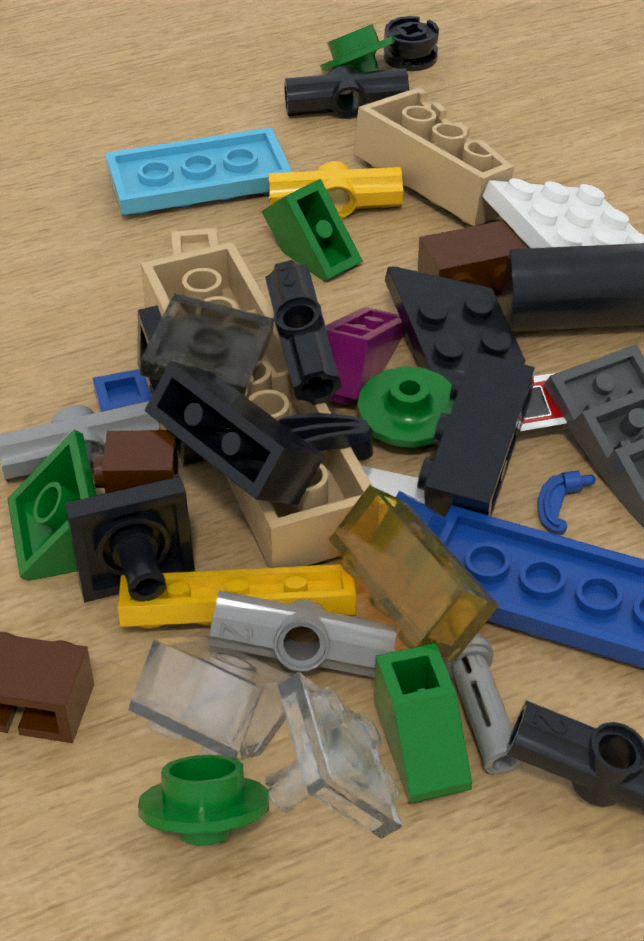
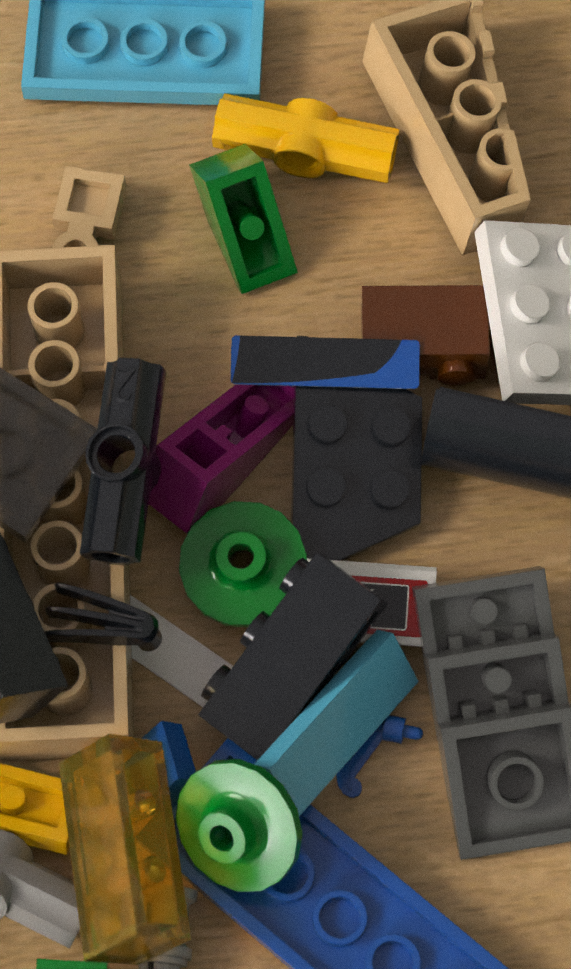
camera: 20 degrees right, 25 degrees up
(414, 276) = (325, 362): none -> black sticker
(526, 534) = (239, 825): none -> green piece
(531, 472) = (340, 719): none -> medium azure tile

